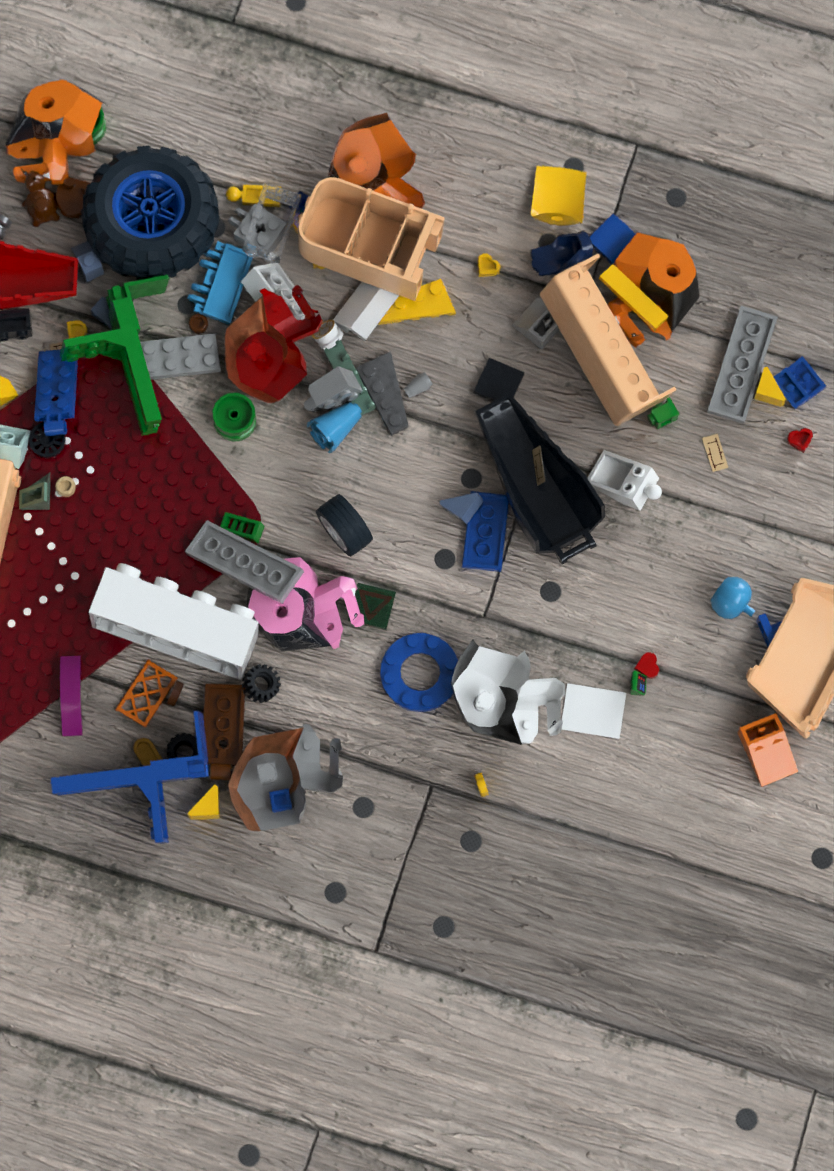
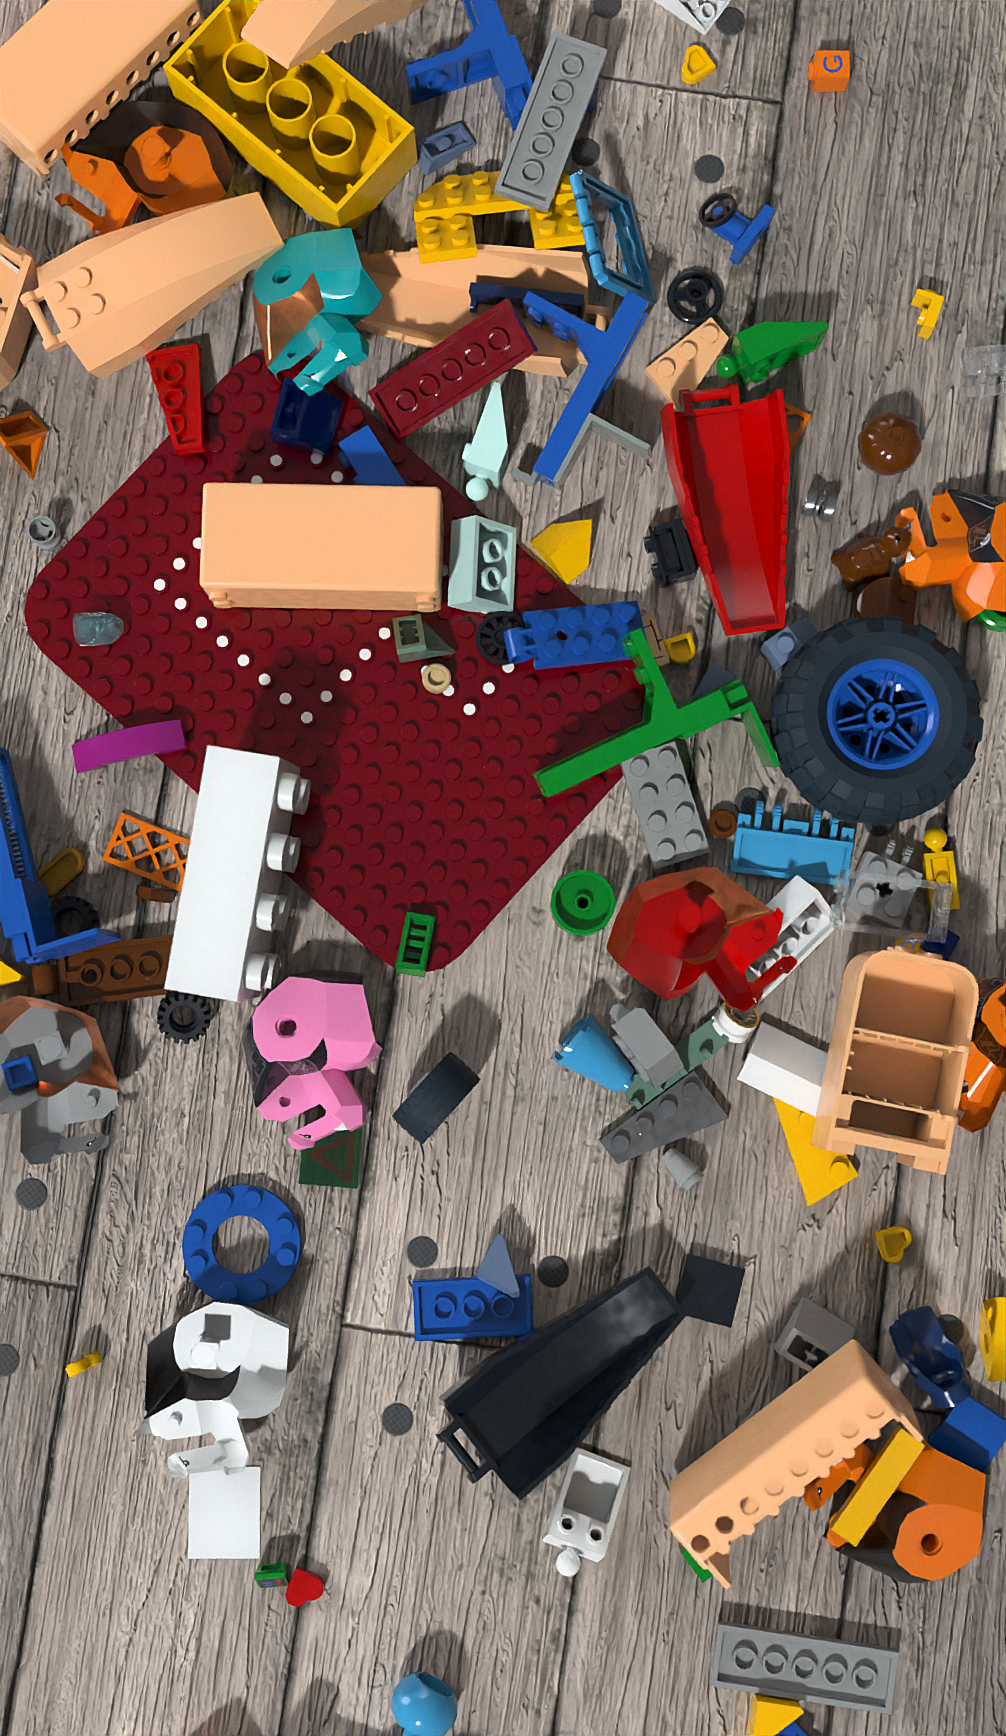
camera: 85 degrees right, 10 degrees up
(244, 562) = (353, 960): light grey plate -> none
(538, 463) = (584, 1374): tan sticker -> none
(715, 452) = (656, 1641): tan sticker -> none

